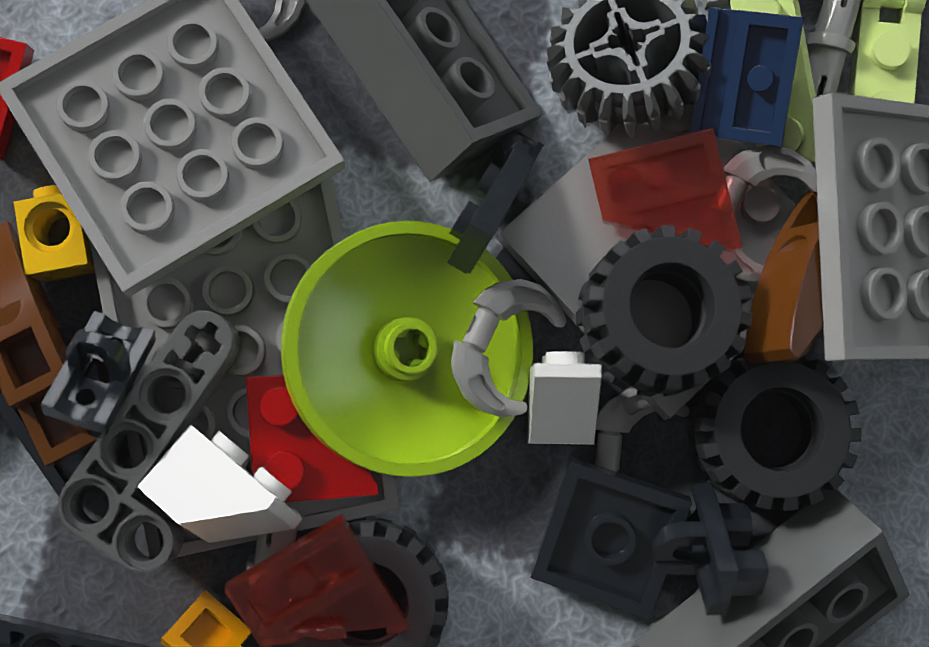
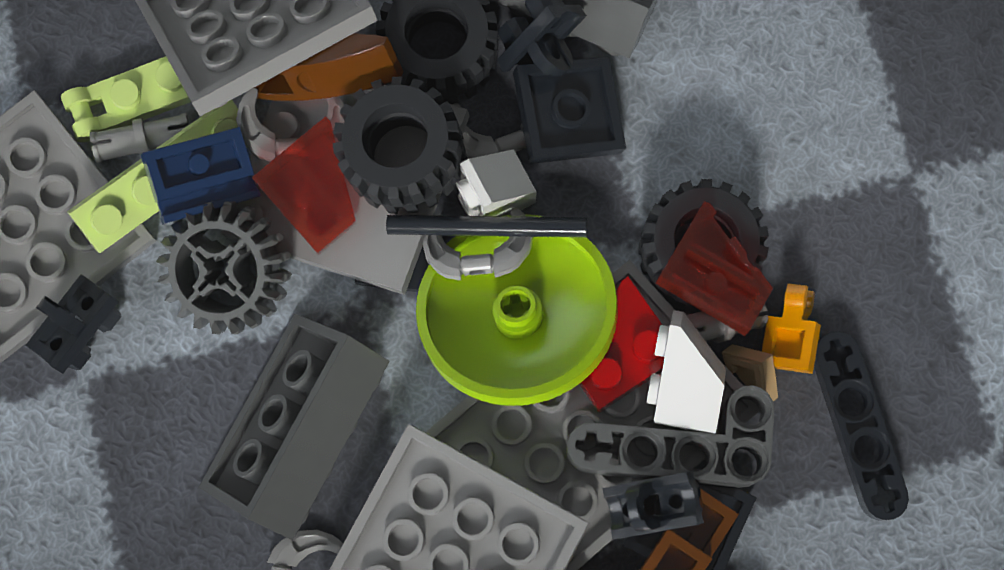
camera: 115 degrees left, 5 degrees down
(201, 580) = (752, 368): none -> tan tile
(497, 189) = (372, 304): black hinge -> none
(517, 365) = (486, 226): none -> black bar

